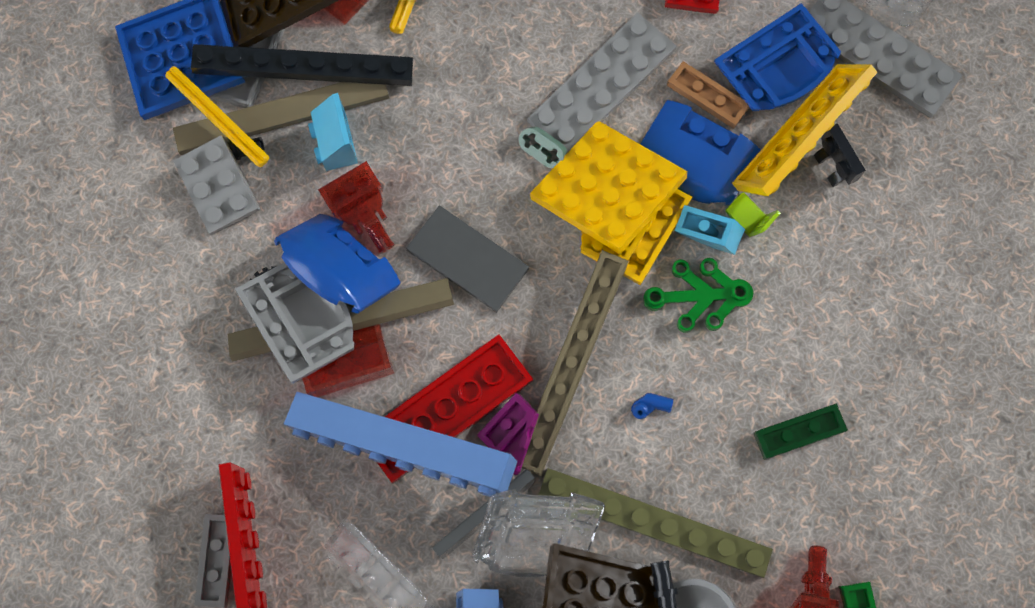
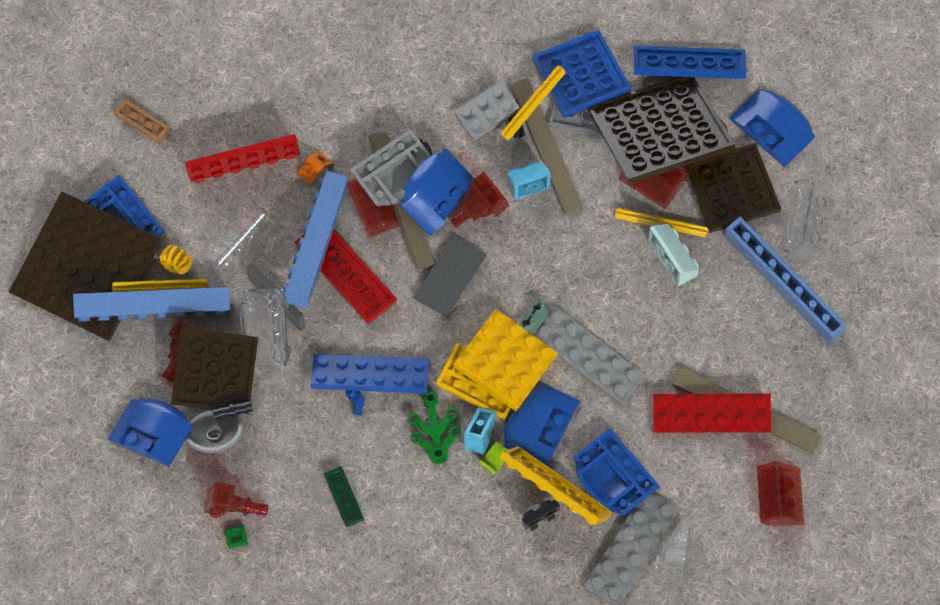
camera: 85 degrees right, 5 degrees down
(214, 564) = (224, 143): light grey plate -> none
(271, 446) = (313, 167): none -> orange bracket
(301, 65) = (577, 153): black plate -> none
(511, 429) = (330, 311): magenta wing -> none
(573, 358) = (380, 345): dark tan tile -> none
(614, 387) = (370, 373): none -> blue plate
(665, 525) = (278, 409): olive plate -> none
(708, 95) = (584, 427): medium nougat plate -> none

